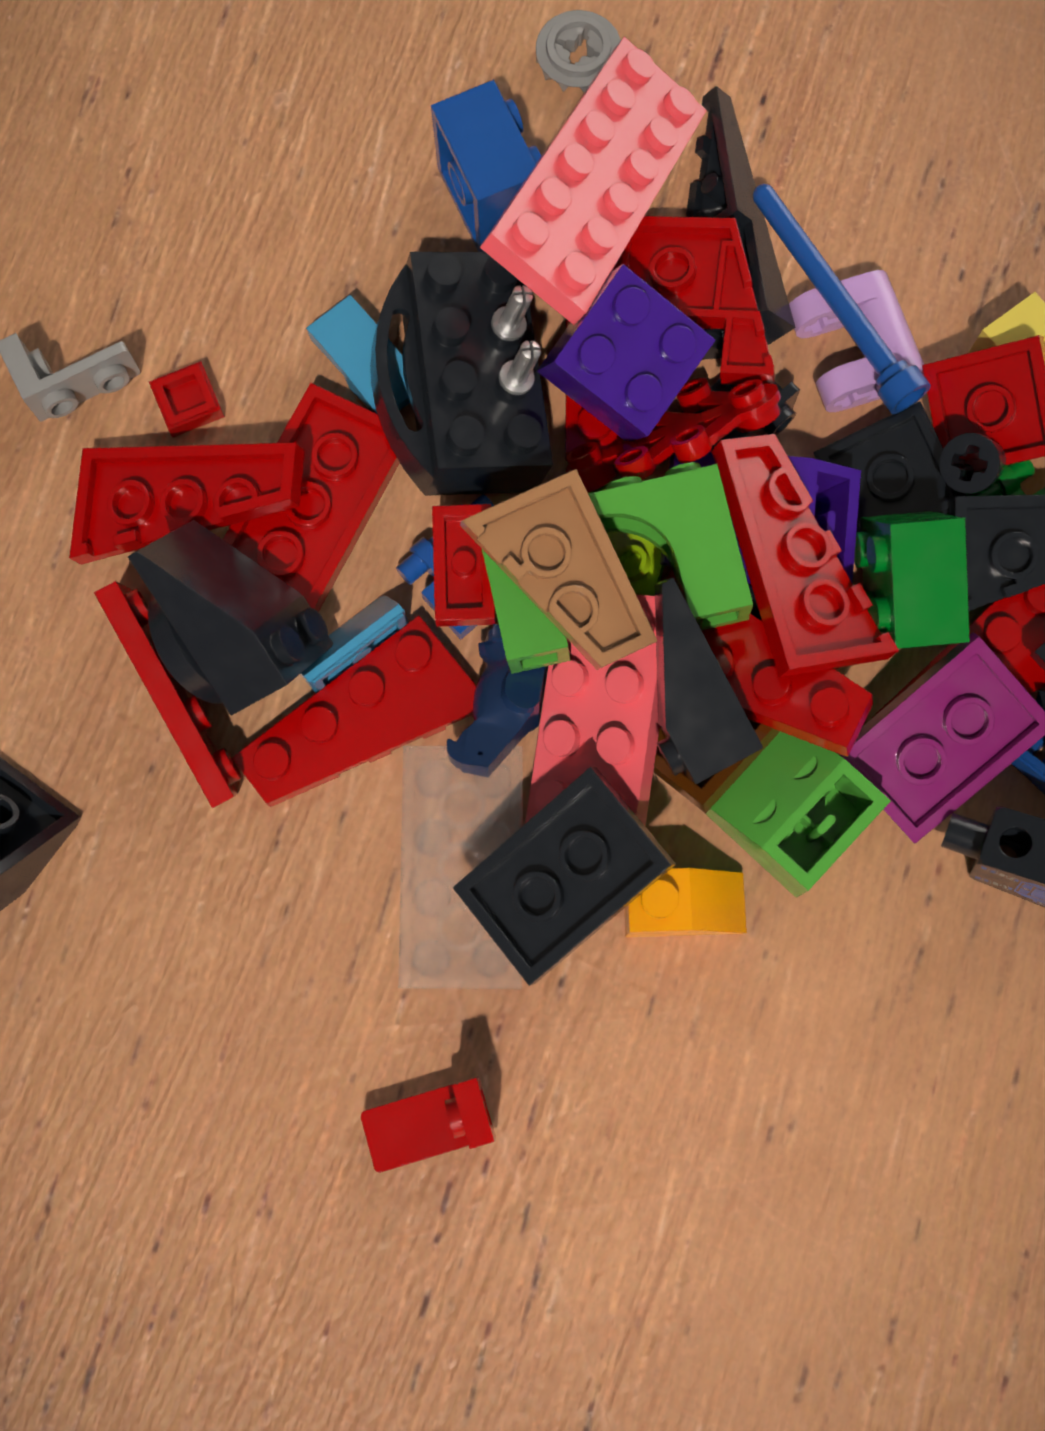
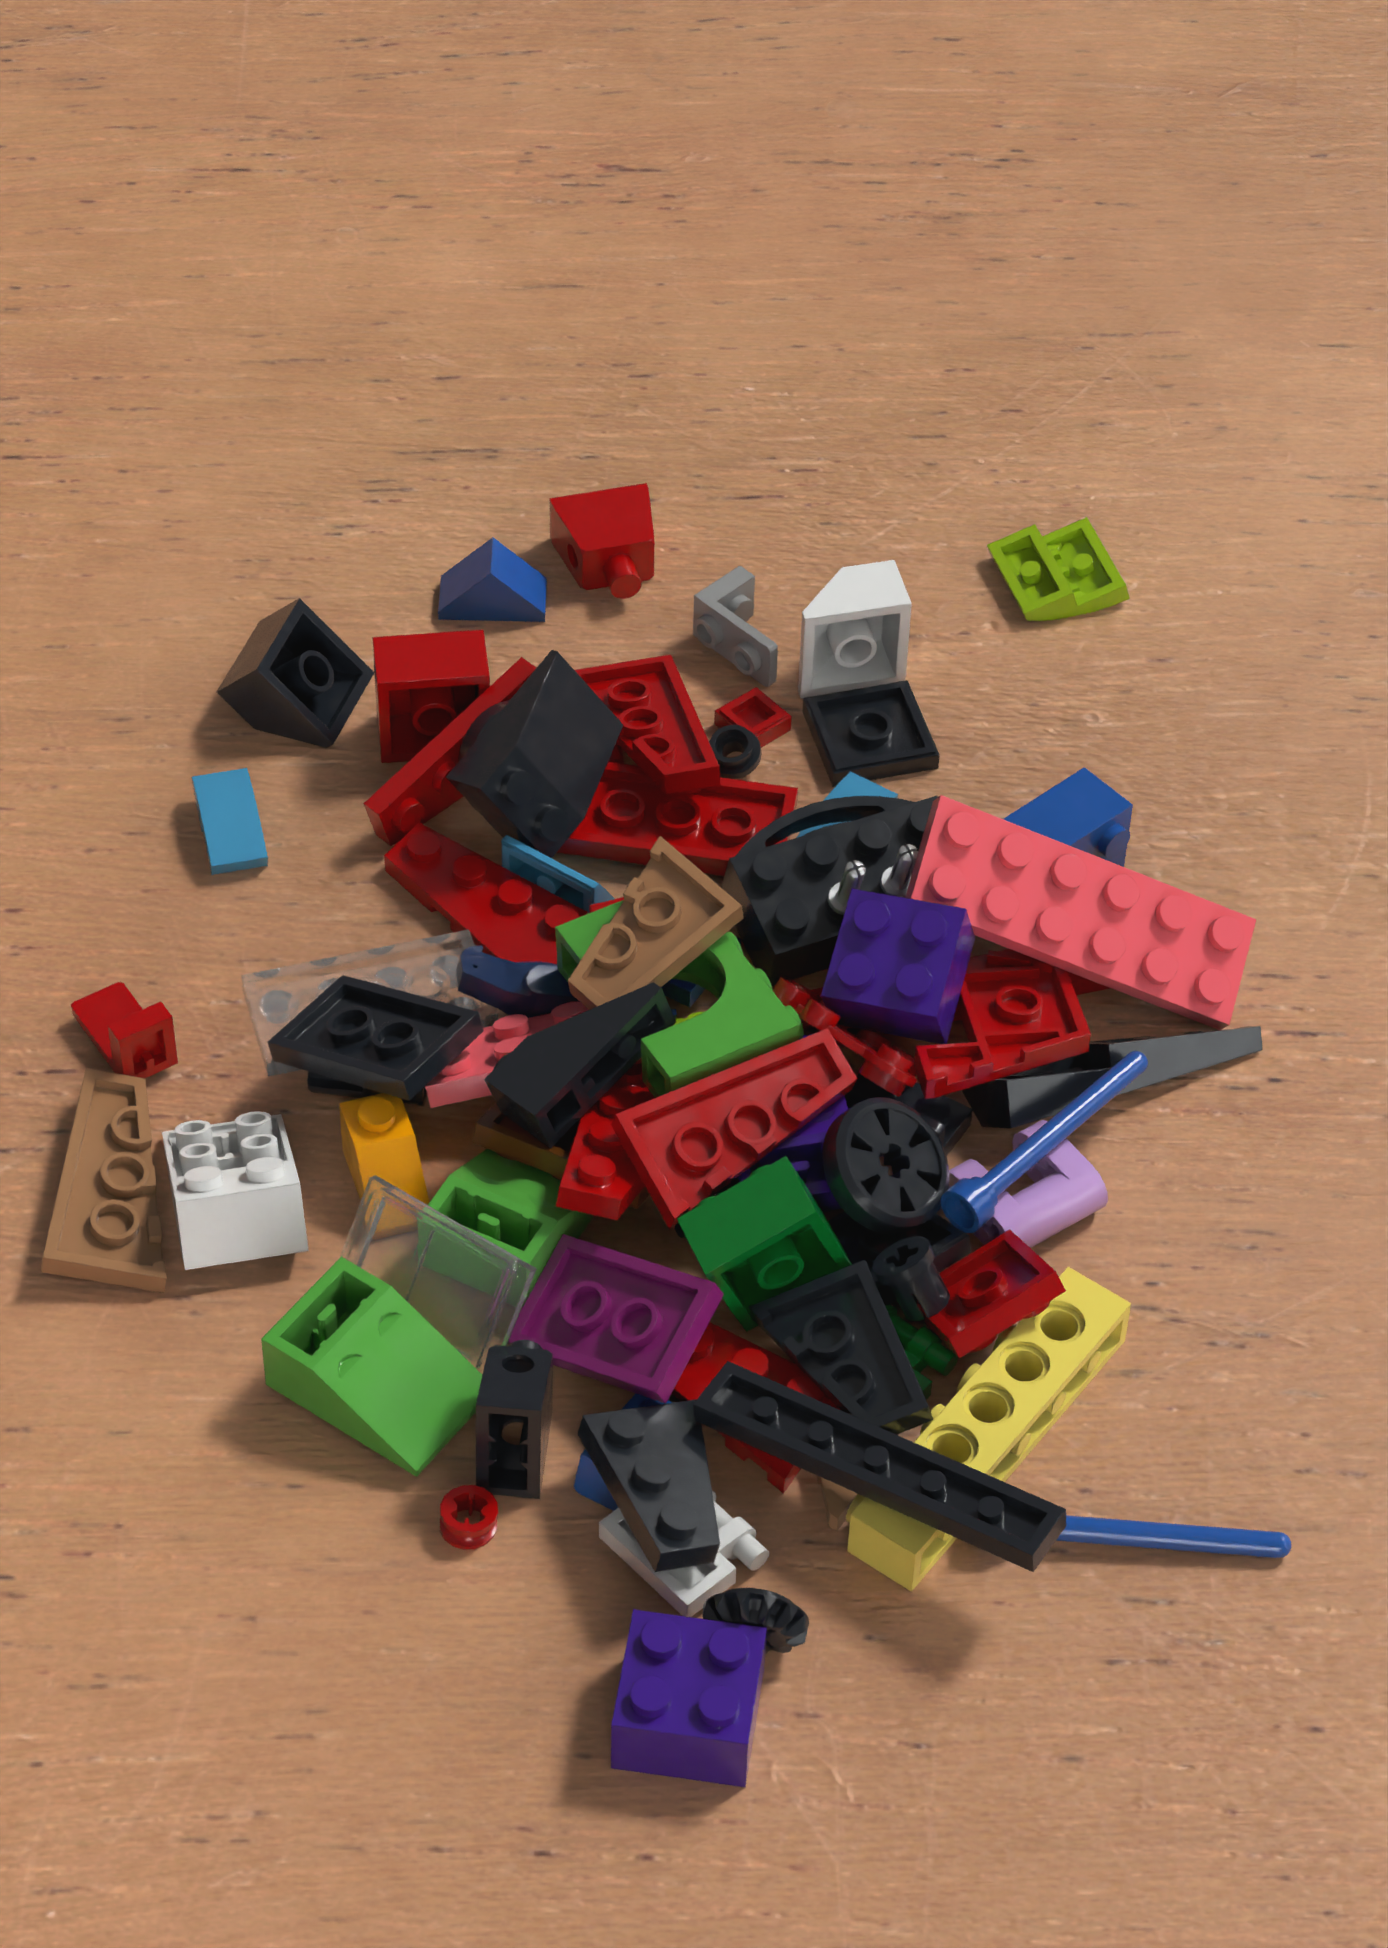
camera: 70 degrees right, 30 degrees down
(76, 697) = (424, 686): none -> red brick
(82, 59) = (1058, 572): none -> lime slope
(128, 252) = (855, 631): none -> white slope
(162, 949) = (230, 821): none -> dark azure slope
(232, 411) = (736, 739): none -> black plate
(240, 297) = (871, 732): none -> black tile
(563, 36) = (1264, 903): light grey gear -> none
(647, 1187) = (106, 1197): none -> medium nougat wing
(666, 1057) = (234, 1190): none -> white slope
(854, 897) = (440, 1268): none -> clear piece
(855, 444) = (860, 1182): none -> black wheel
(936, 976) = (371, 1367): none -> bright green slope

